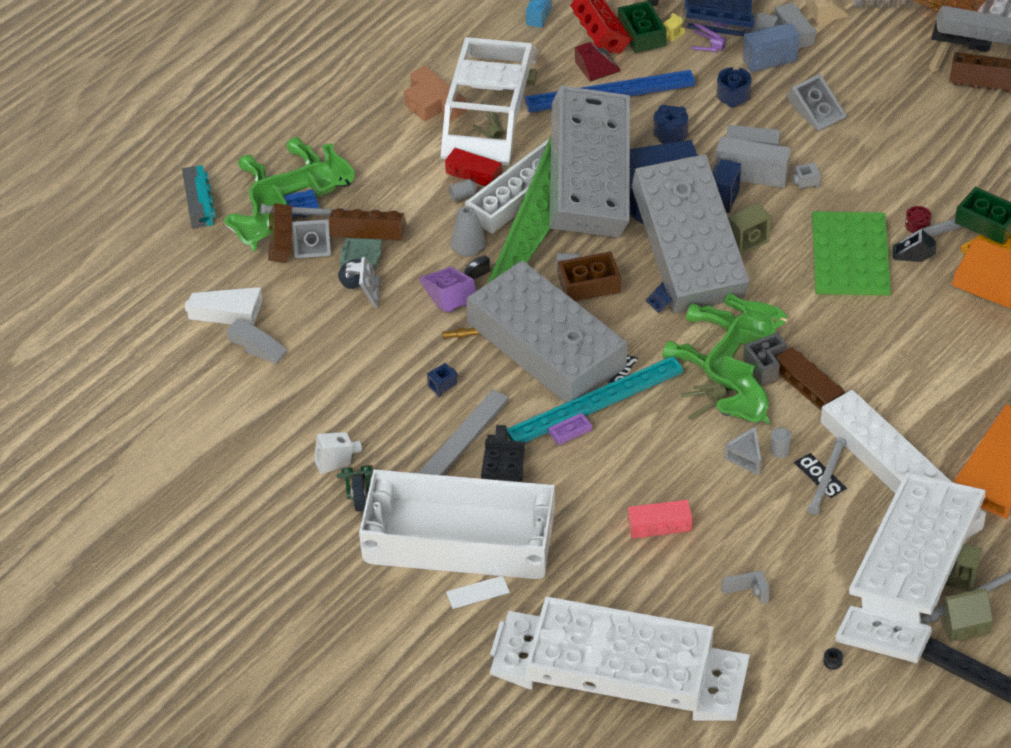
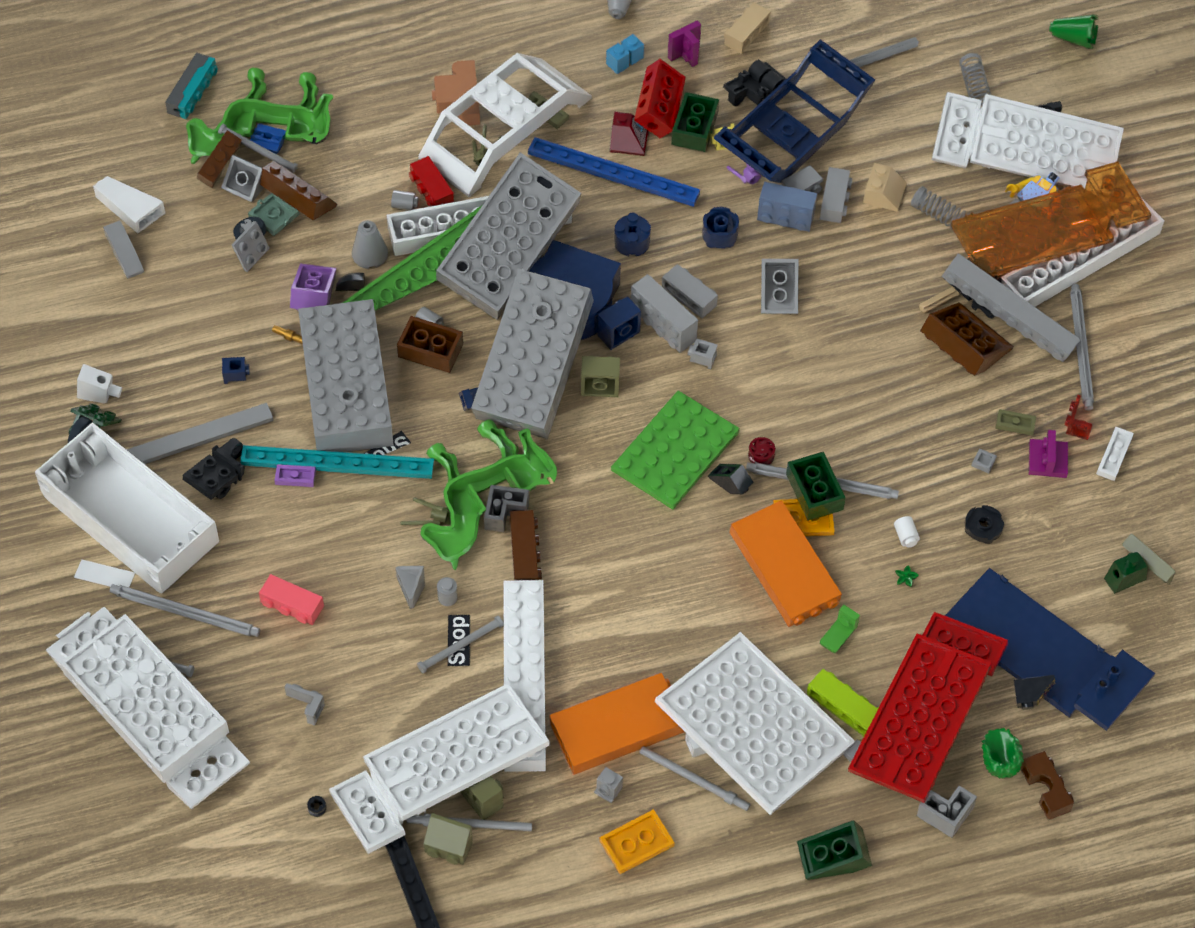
camera: 30 degrees right, 10 degrees up
(575, 578) = (185, 610): none -> light grey piece

